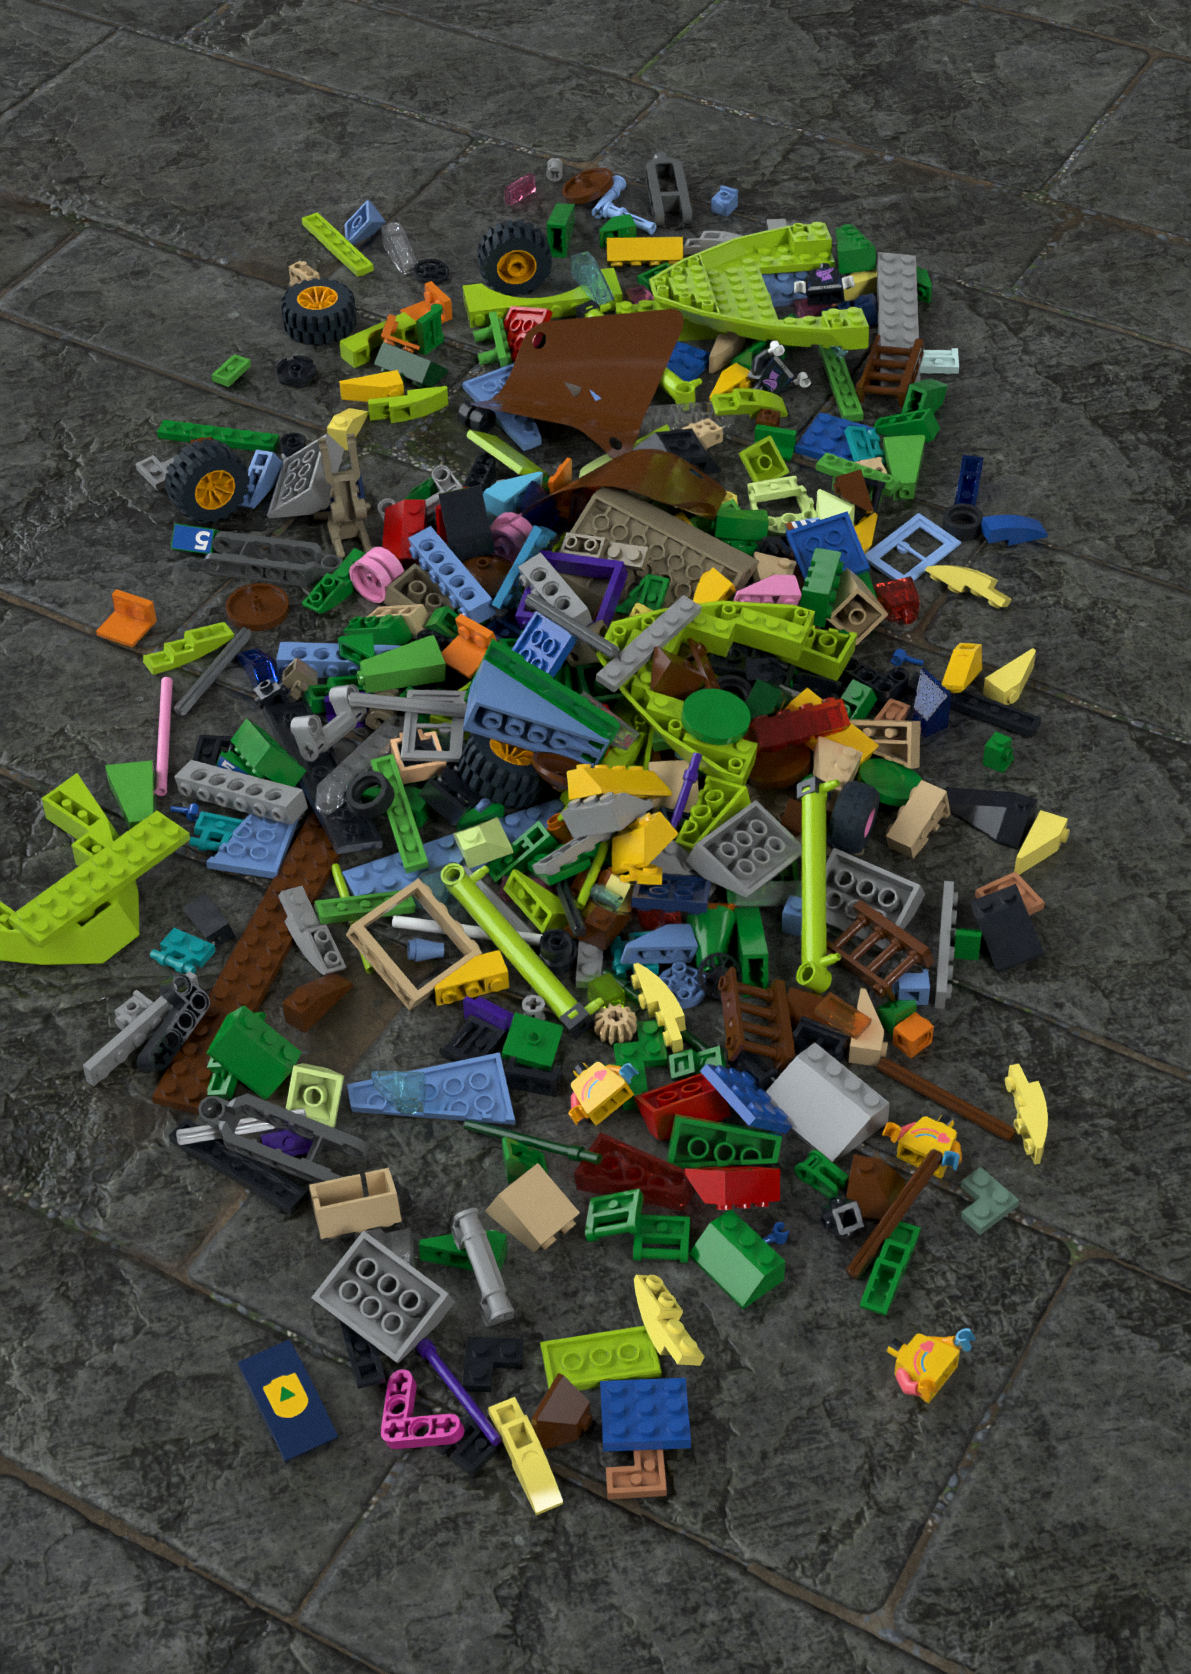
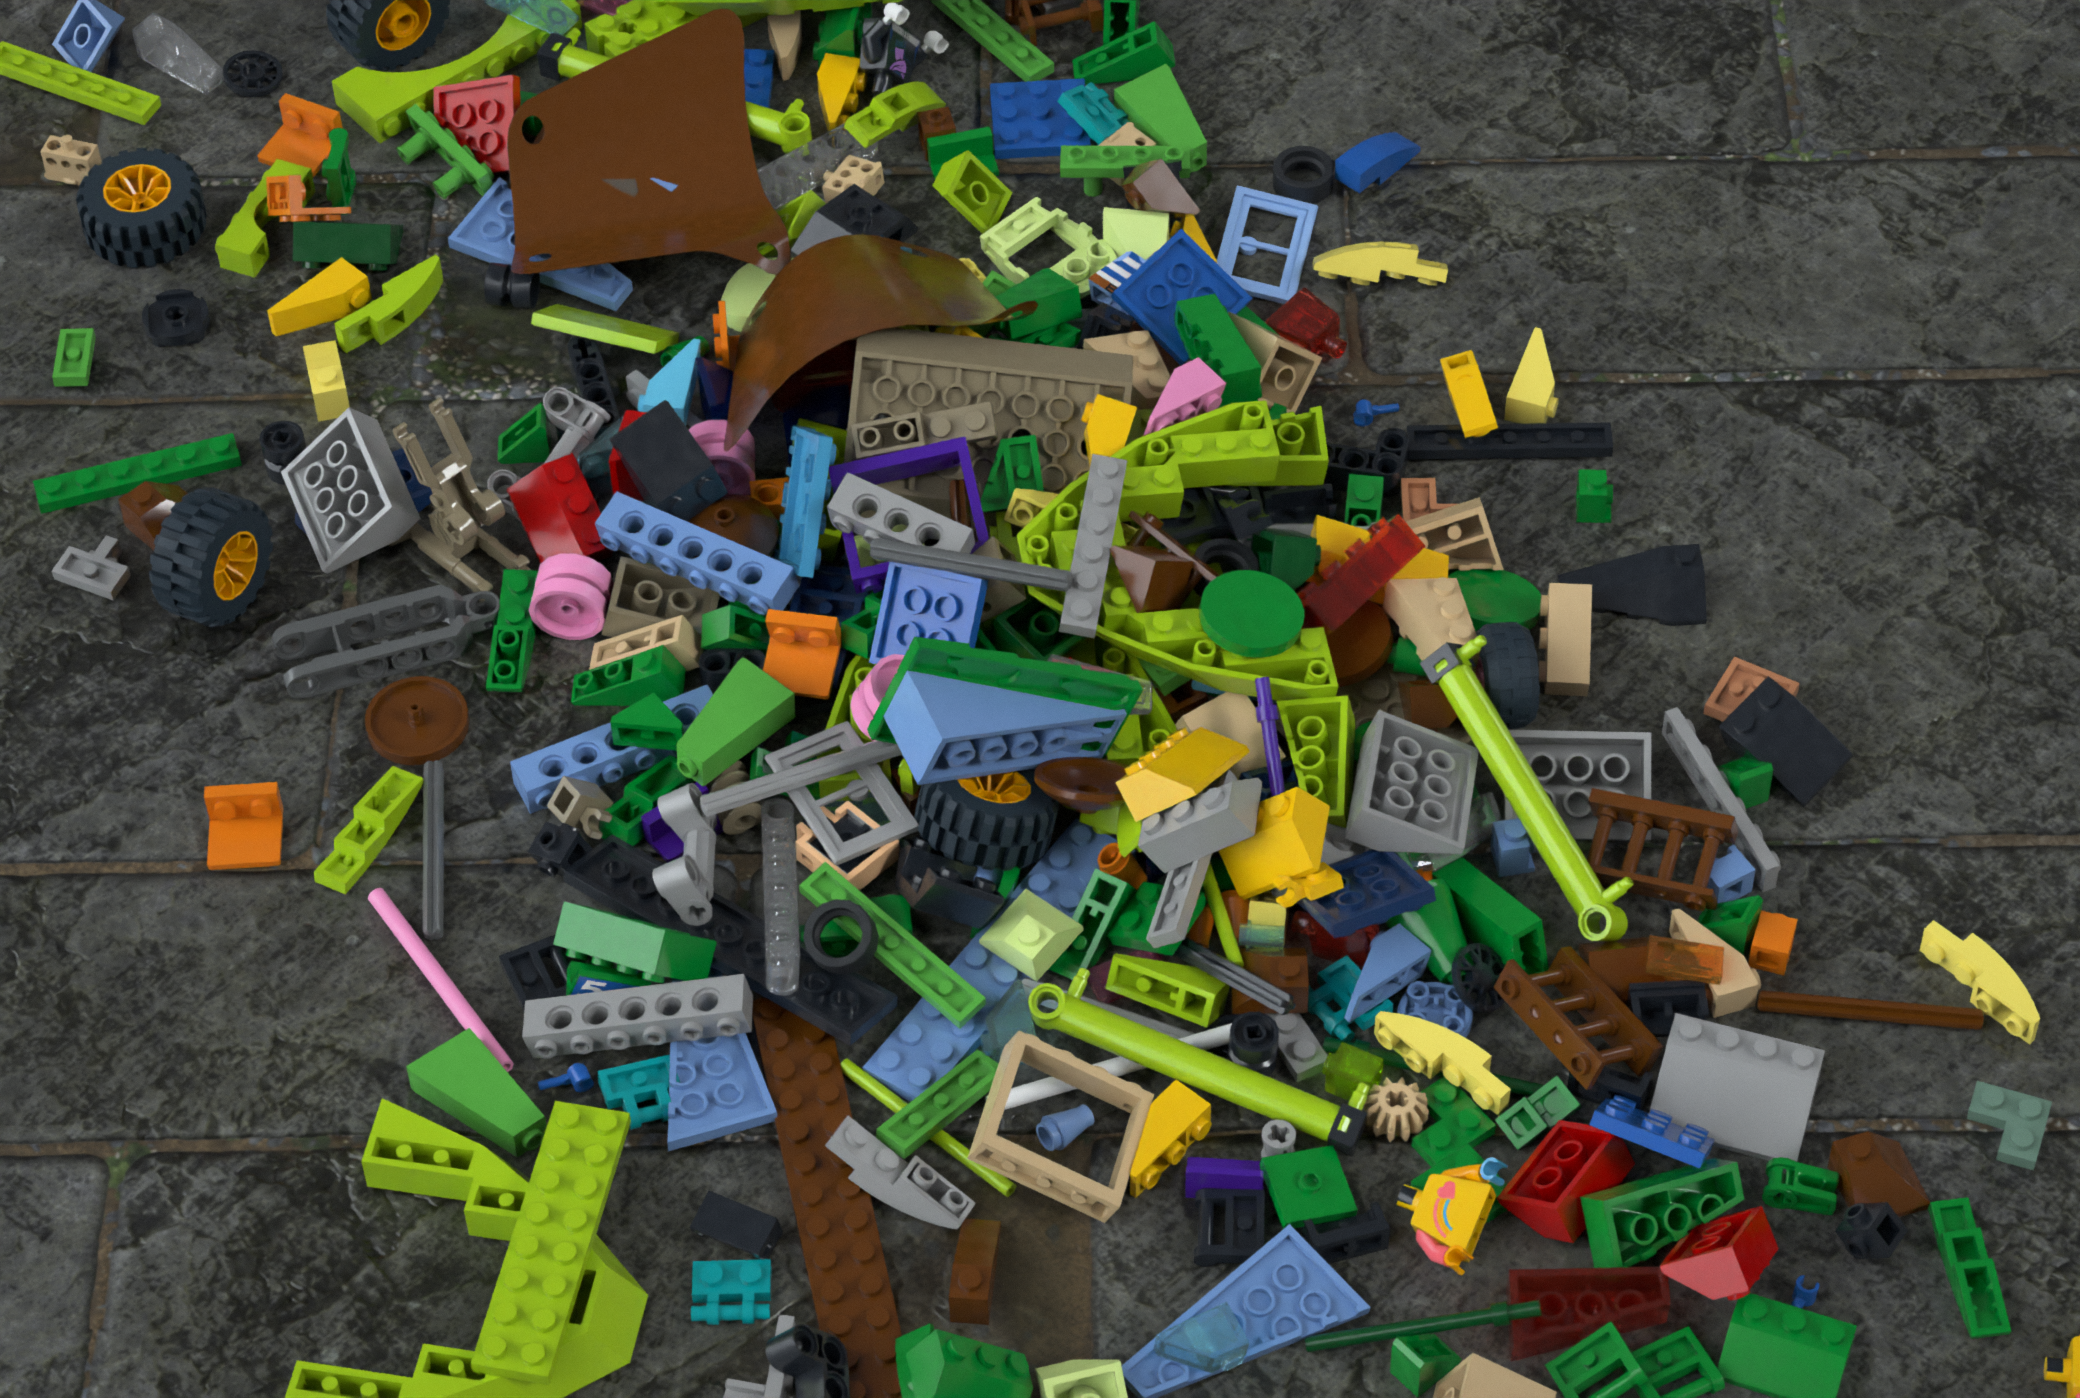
camera: 30 degrees left, 5 degrees up
(193, 538) = (238, 654): blue panel -> none
(258, 666) = (500, 813): clear blue slope -> none
(263, 477) = (269, 492): medium blue slope -> none
(894, 1214) = (1930, 1196): reddish brown axle -> none
(920, 1137) = (1903, 1082): yellow torso -> none
(931, 704) = (1462, 463): clear blue slope -> none
(969, 480) = (1271, 112): clear blue slope -> none
(1042, 841) = (1732, 591): light yellow slope -> none

